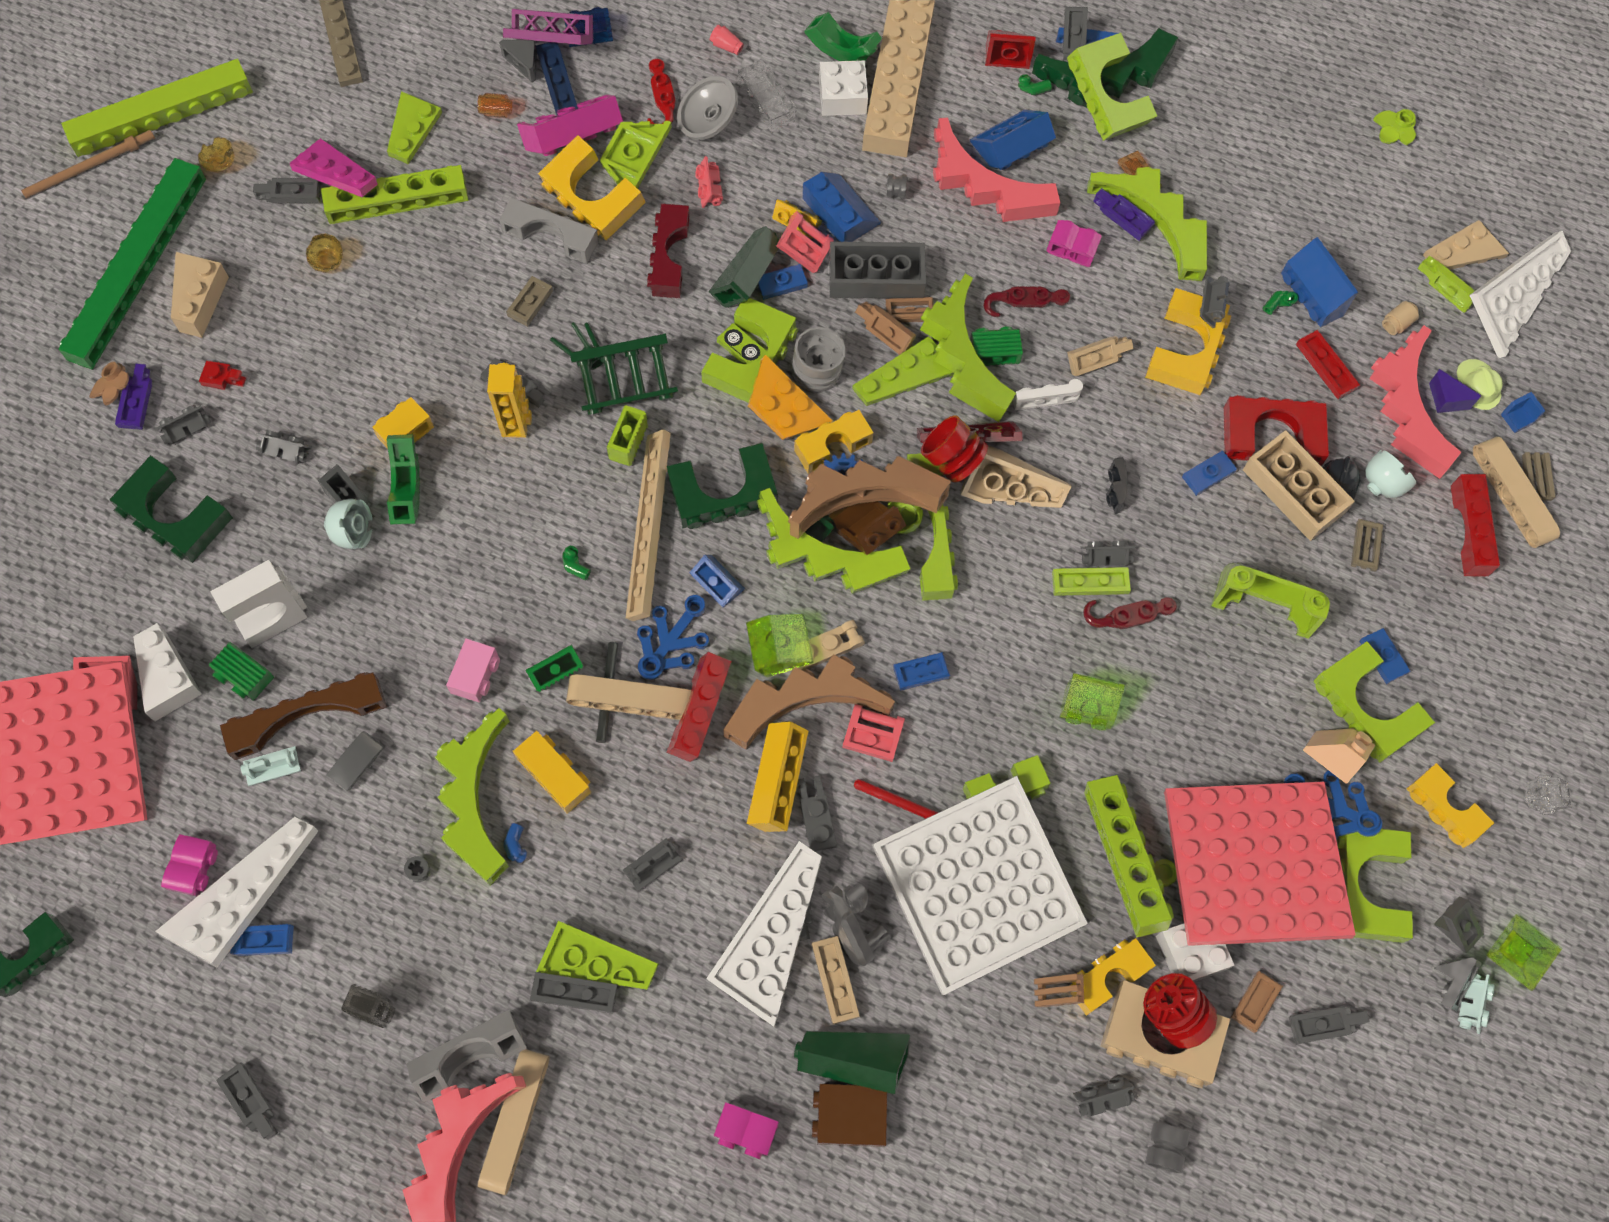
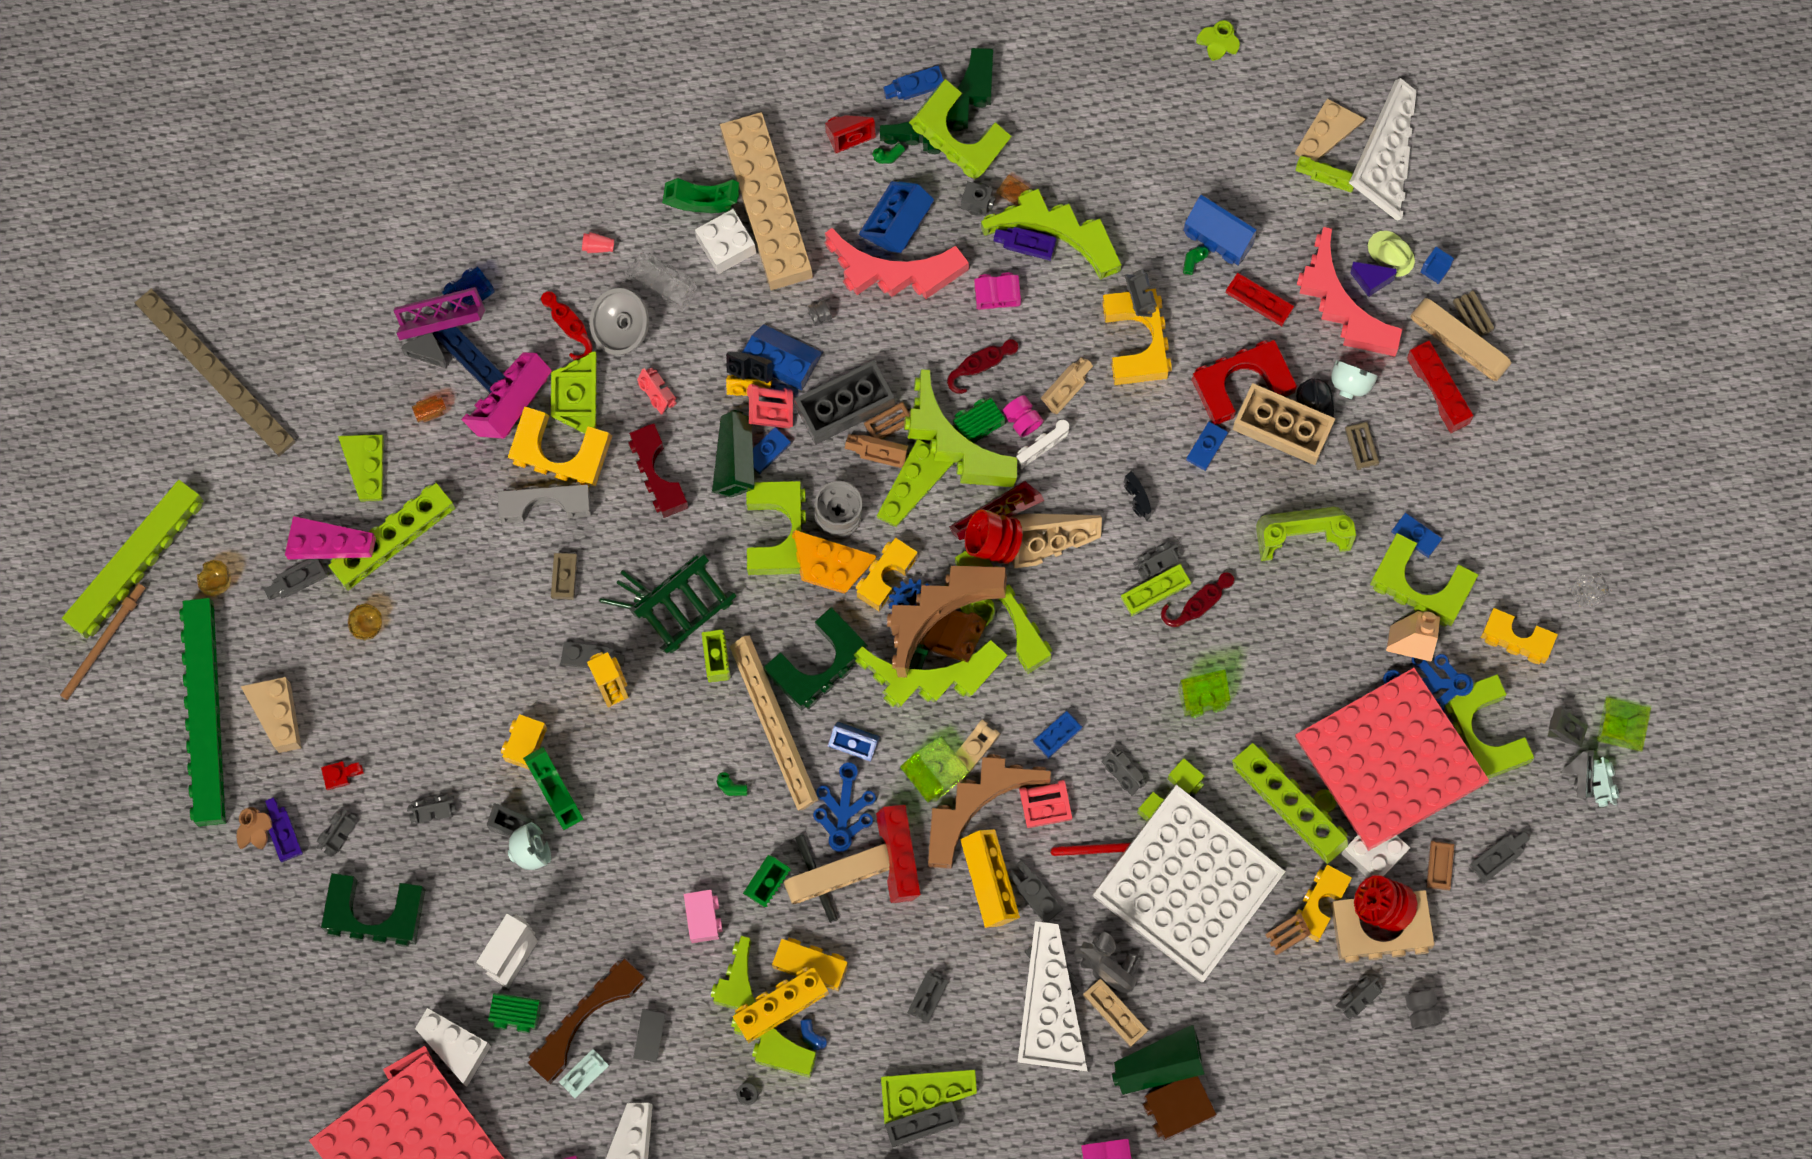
camera: 20 degrees left, 5 degrees up
(495, 793) = (780, 1004): none -> yellow brick
(740, 345) = (765, 526): tile -> none
(804, 196) = (746, 365): none -> black slope
(966, 729) = (1117, 764): none -> dark grey hinge
(1040, 360) = (1022, 416): none -> dark pink wheel
(1074, 29) = (902, 90): dark grey hinge -> none
(1097, 154) = (977, 198): none -> dark grey brick
(1400, 318) = (1301, 226): tan brick -> none

